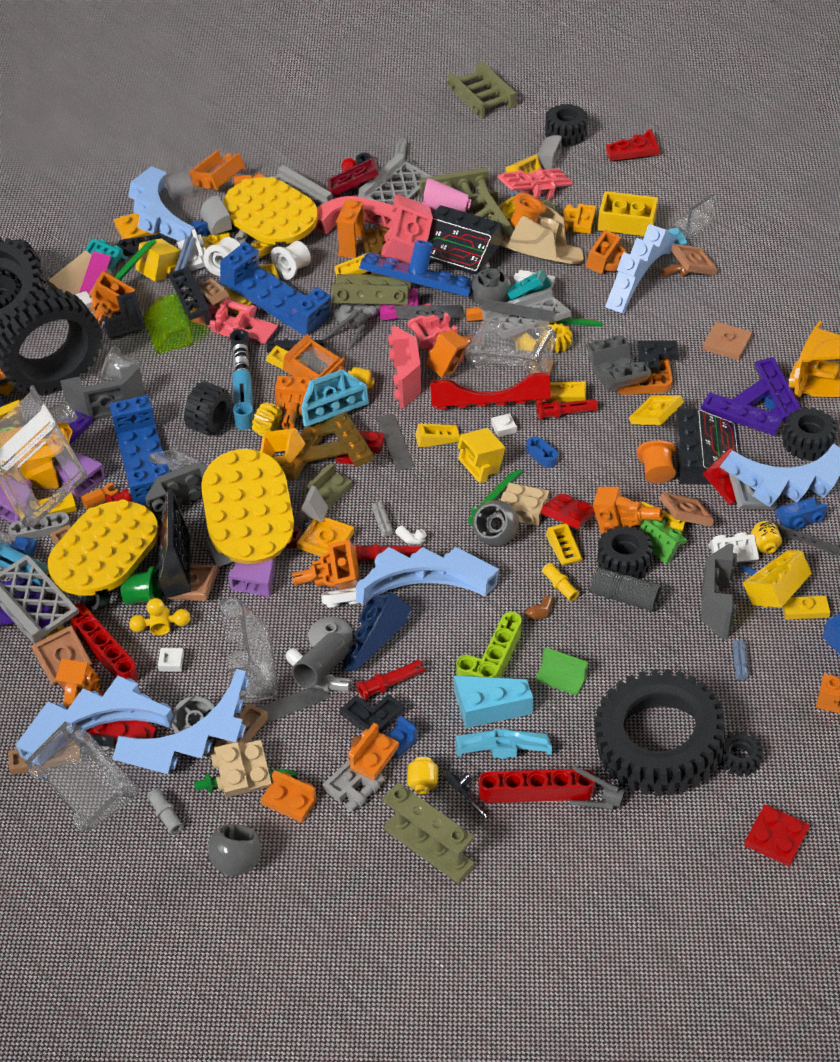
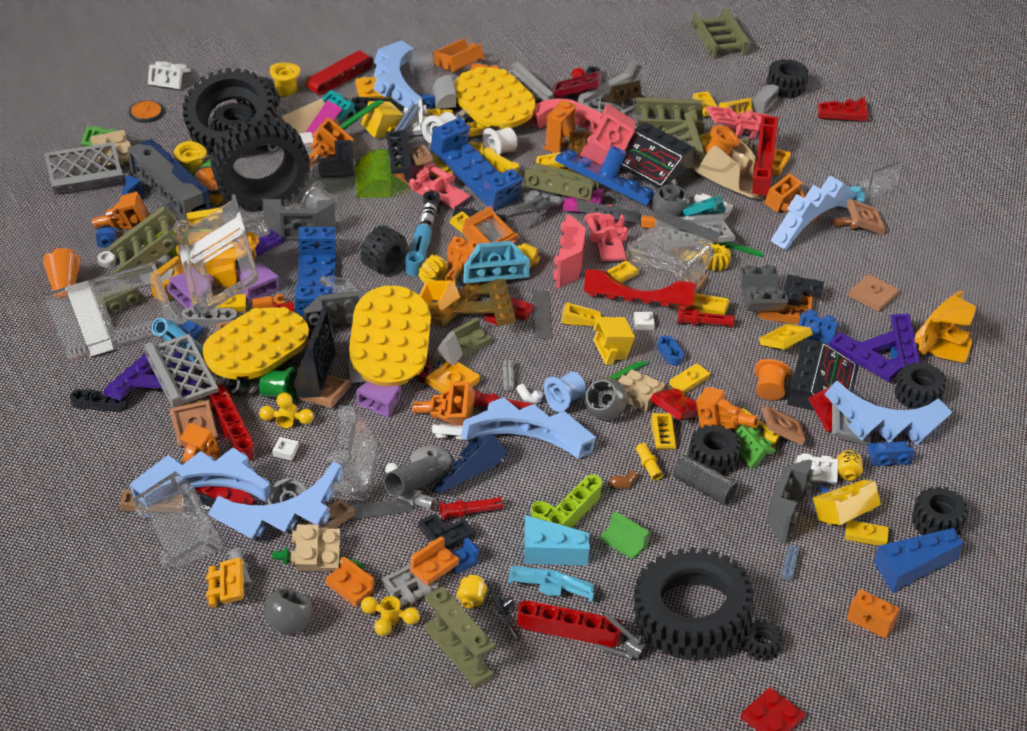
camera: 10 degrees right, 5 degrees down
(38, 234) = (285, 78): none -> yellow piece
(94, 216) = (339, 72): none -> red beam
(160, 829) = (231, 582): none -> light orange plate
(300, 283) = (498, 162): none -> yellow plate
(342, 828) = (390, 613): none -> yellow piece
(404, 175) = (624, 92): none -> dark brown bracket
(441, 194) = (647, 112): bright pink cone -> none
(447, 352) = (610, 247): orange brick -> none
(447, 524) = (564, 390): none -> light blue piece
(466, 375) = (623, 271): none -> yellow plate
(493, 167) = (707, 101): none -> yellow plate
(571, 210) = (765, 155): none -> red arch
(572, 478) = (690, 378): none -> yellow plate
(627, 213) = (816, 163): yellow brick -> none
(691, 390) = (822, 327): none -> blue bracket
(807, 539) = (887, 475): flat silver sticker -> none

